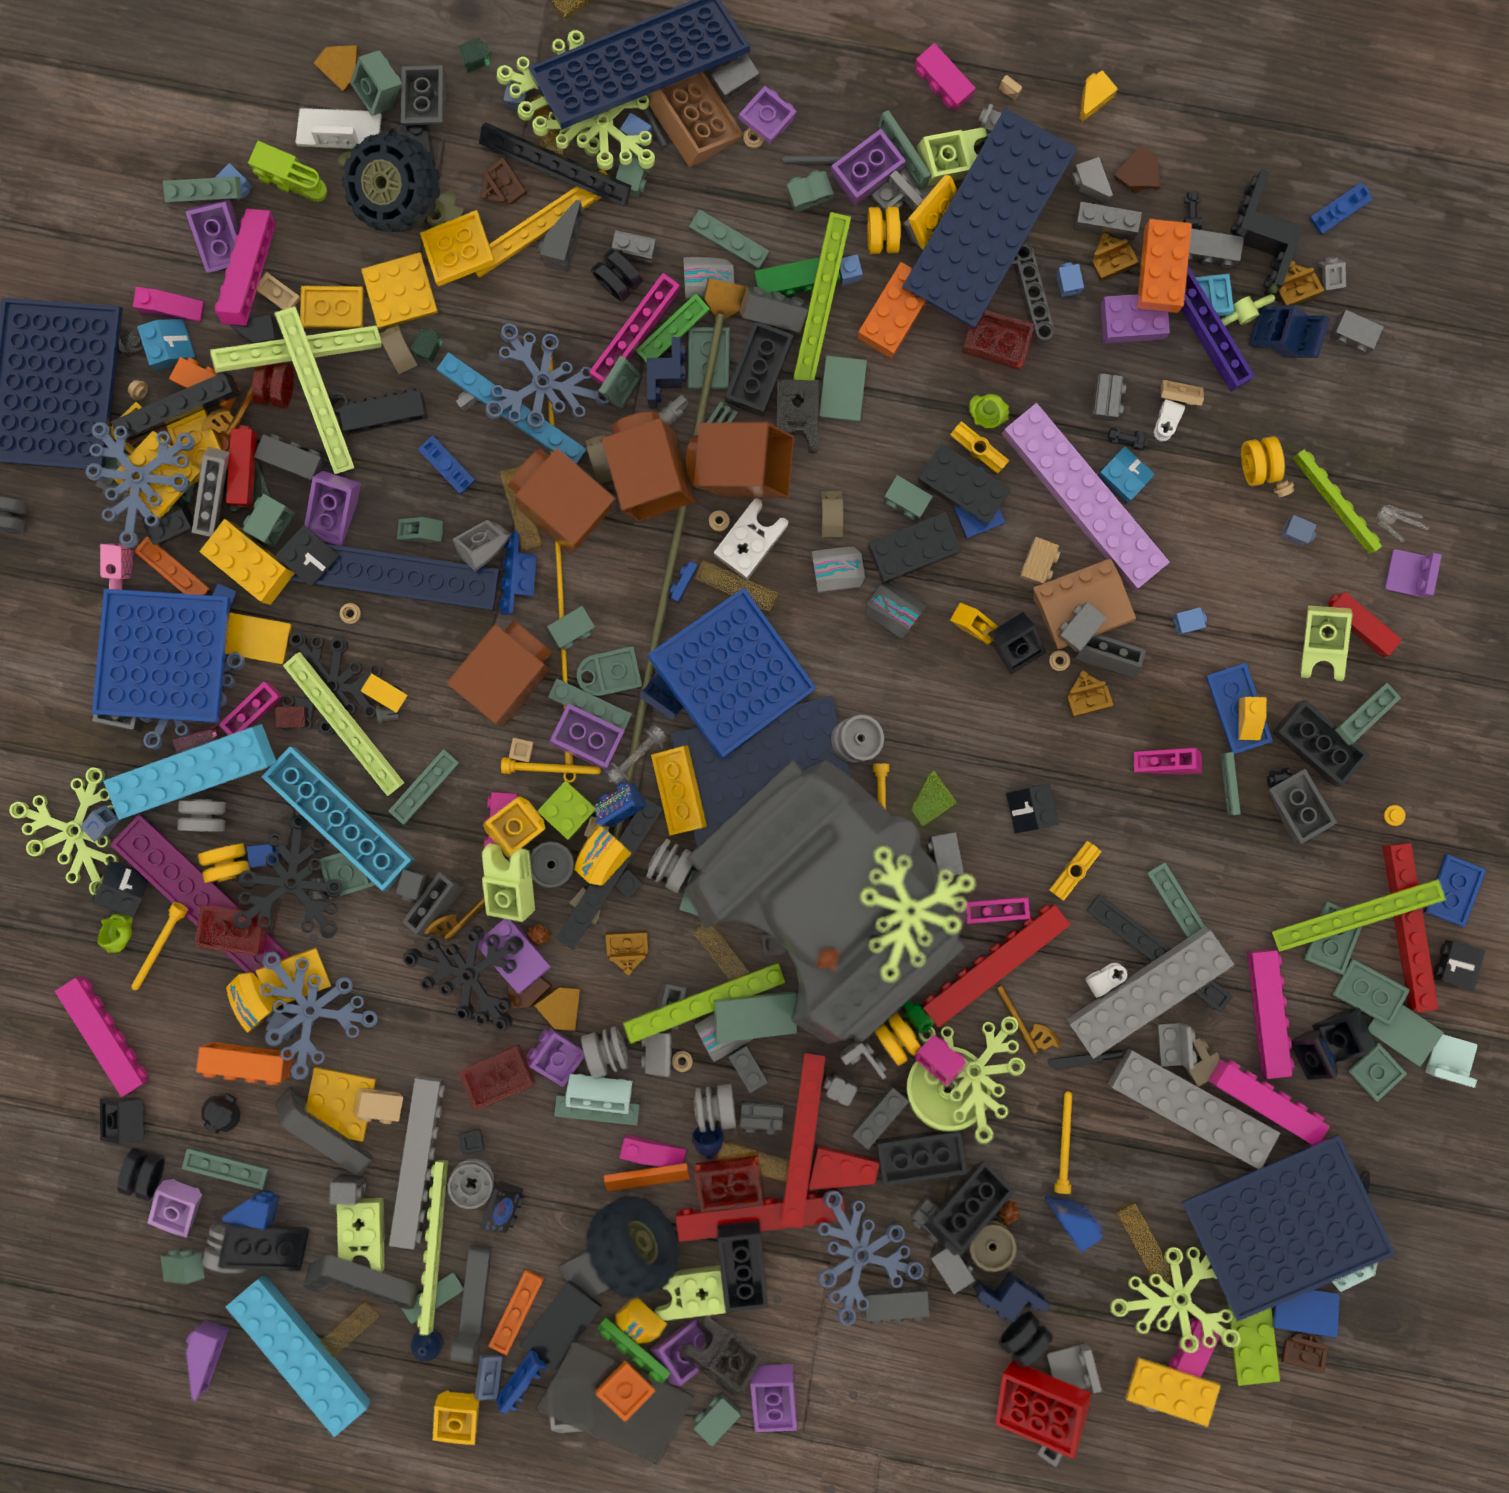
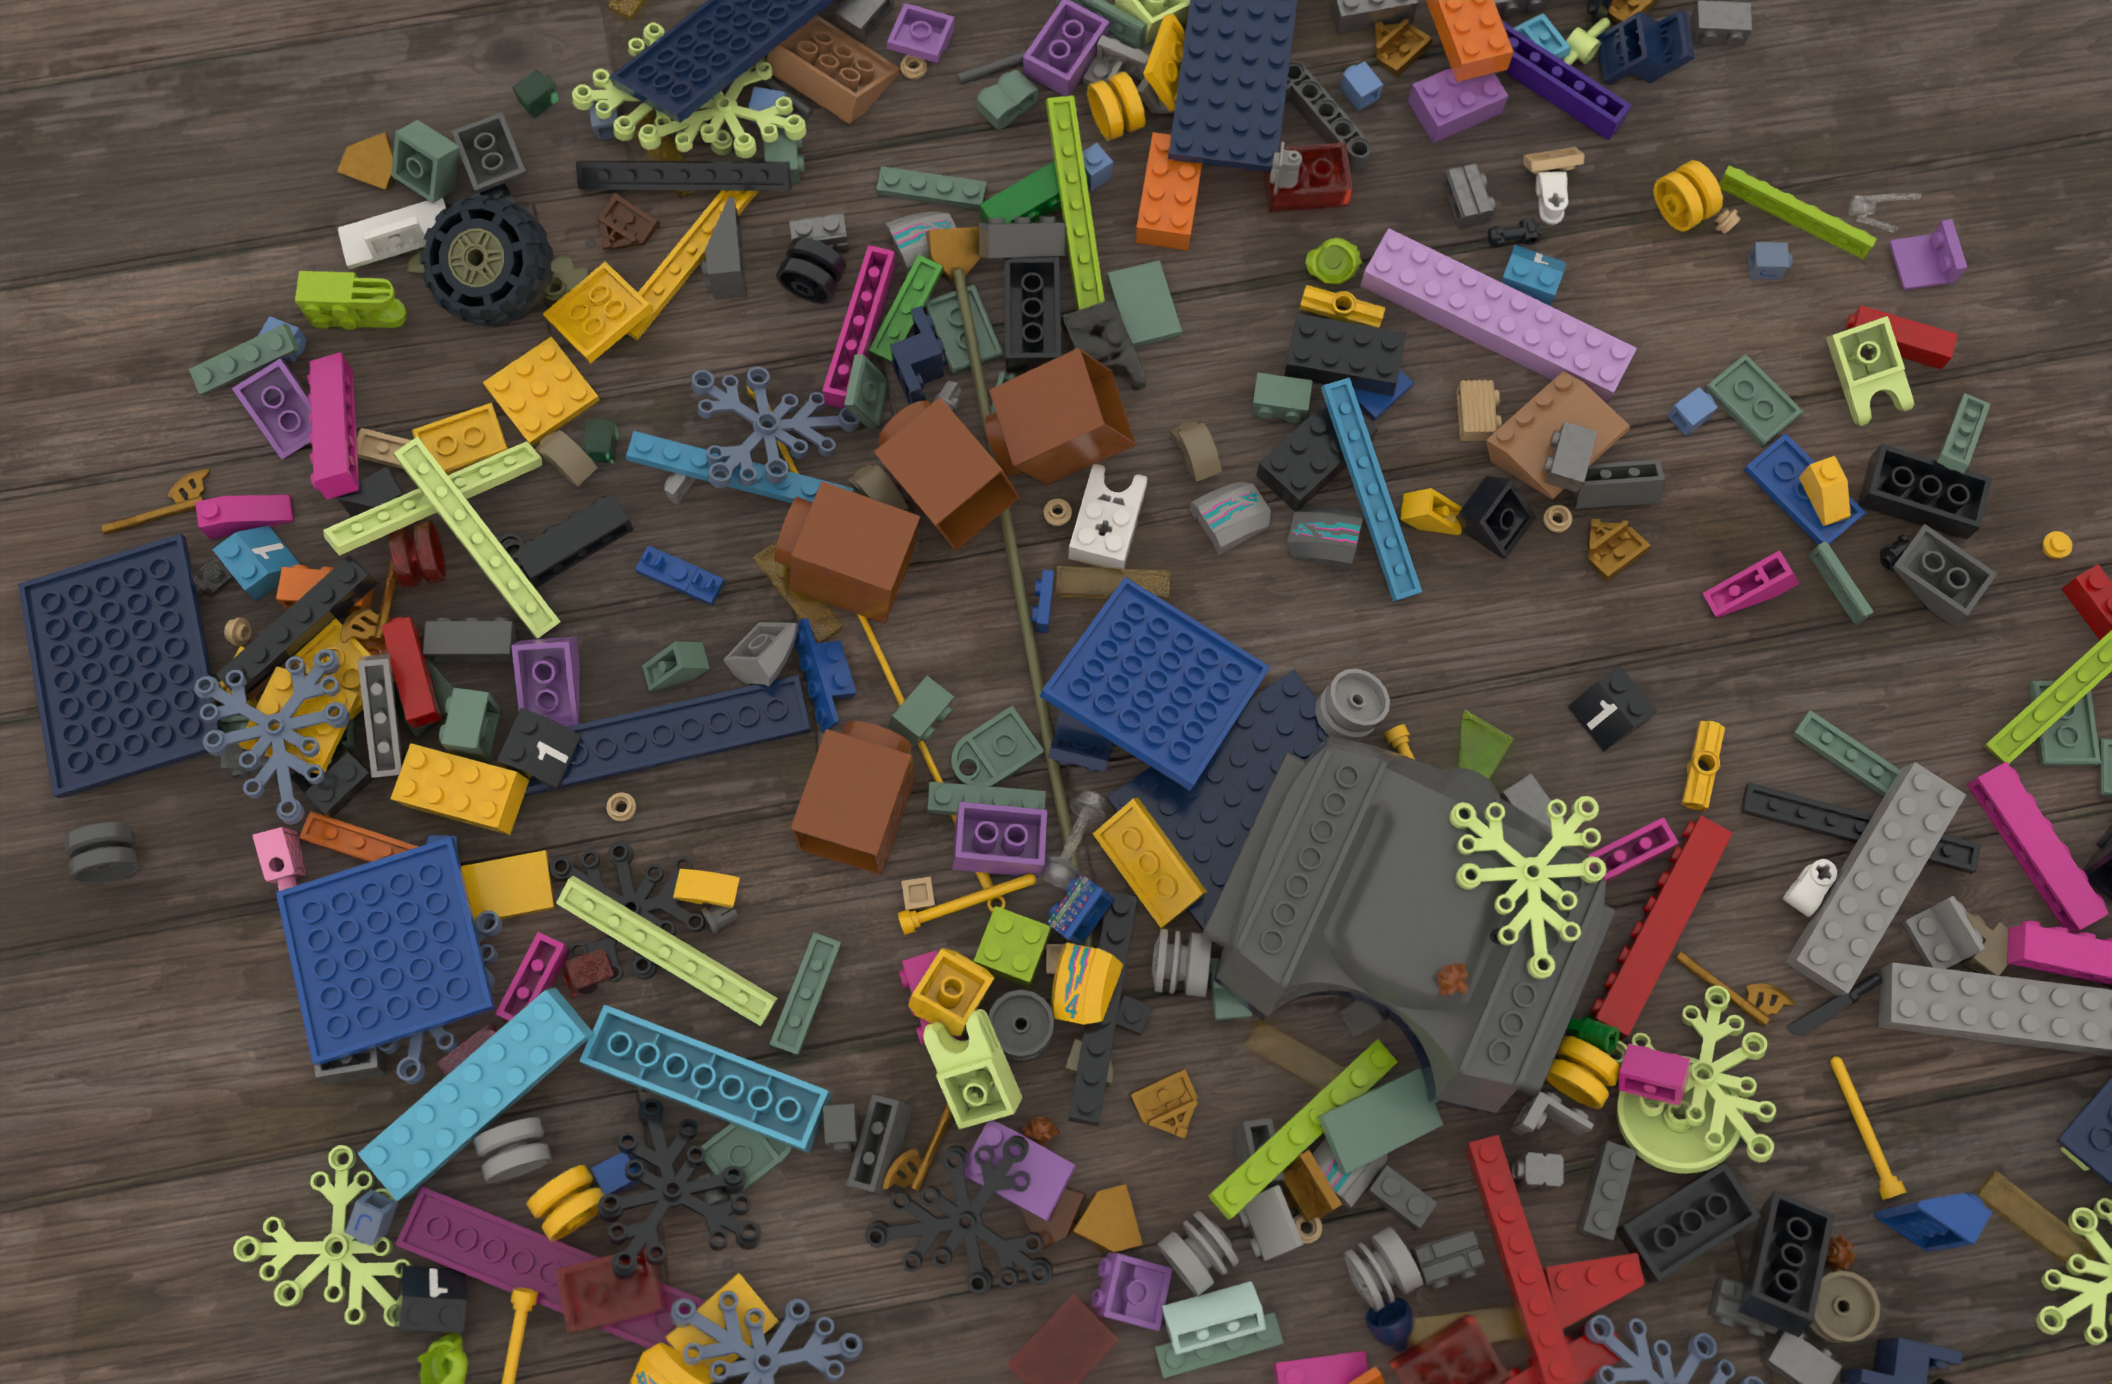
camera: 25 degrees left, 15 degrees down
(128, 281) = (179, 507): none -> pearl gold piece
(690, 1041) = (1308, 1188): none -> pearl gold slope
(936, 592) = (1371, 489): none -> dark azure plate
(978, 333) = (1285, 168): none -> light grey hinge
(1237, 628) = (1753, 400): none -> sand green tile

